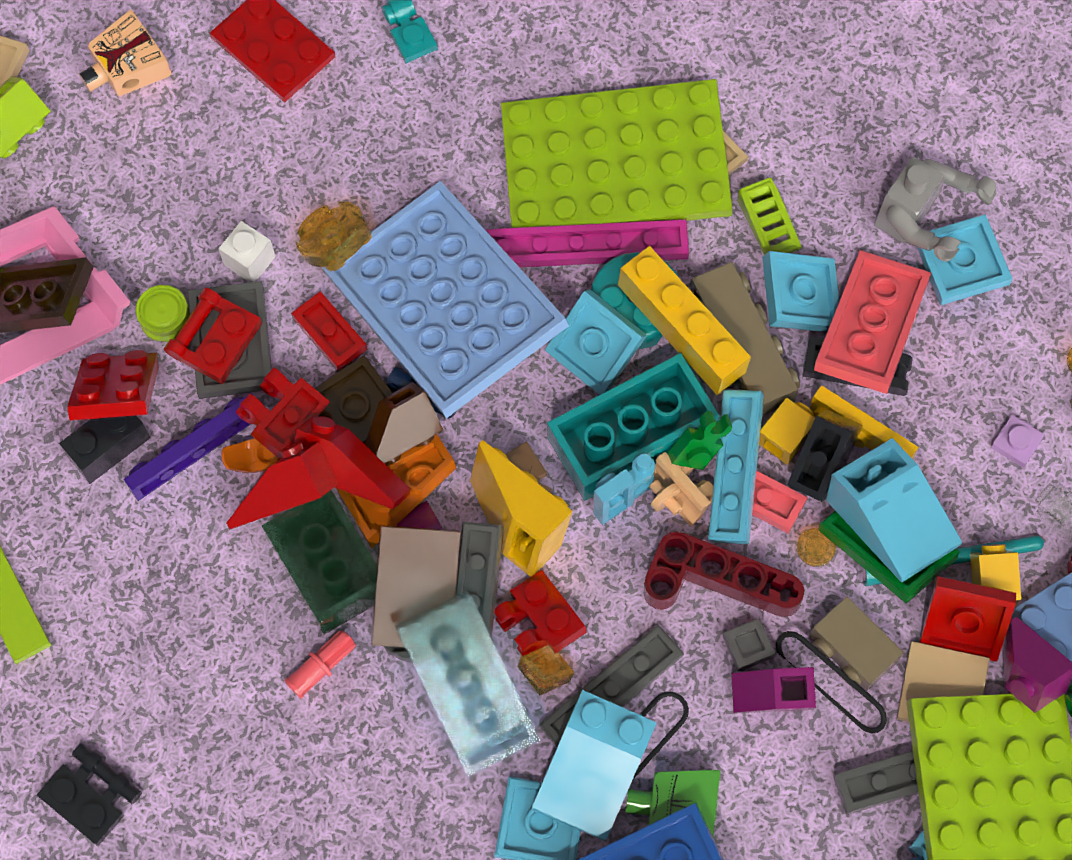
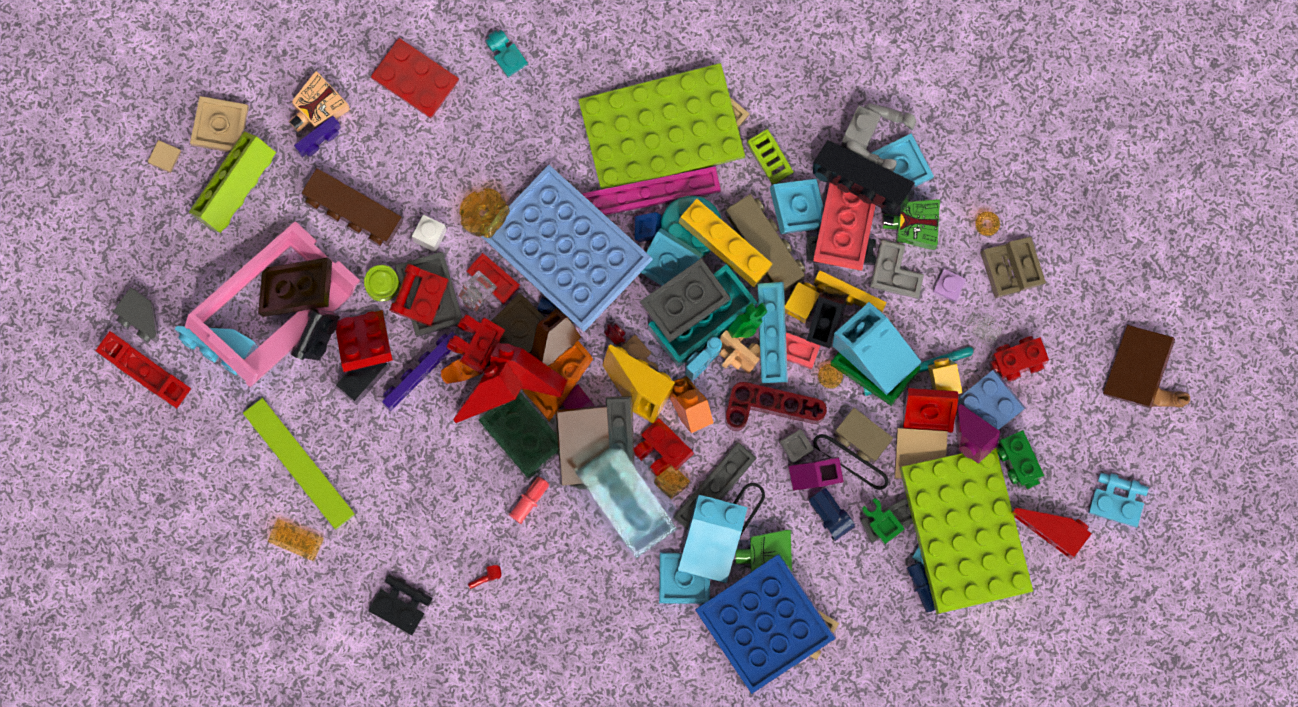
camera: 15 degrees left, 10 degrees up
(46, 367) = (316, 335): none -> black plate
(125, 95) = (326, 131): none -> dark purple plate
(143, 202) = (352, 207): none -> reddish brown brick
(242, 766) = (493, 572): none -> red hand
(292, 350) = (472, 295): none -> clear brick
(497, 434) = (615, 333): none -> dark red plate
(569, 288) = (647, 226): none -> blue plate
(593, 556) = (690, 405): none -> orange slope
(608, 394) = (685, 300): none -> dark grey plate
(791, 763) = (833, 517): none -> dark blue piece
(872, 786) = (884, 524): none -> green plate
(906, 262) = (863, 178): none -> black brick
(926, 413) = (890, 277): none -> light grey tile
(977, 342) = (917, 224): none -> bright green torso

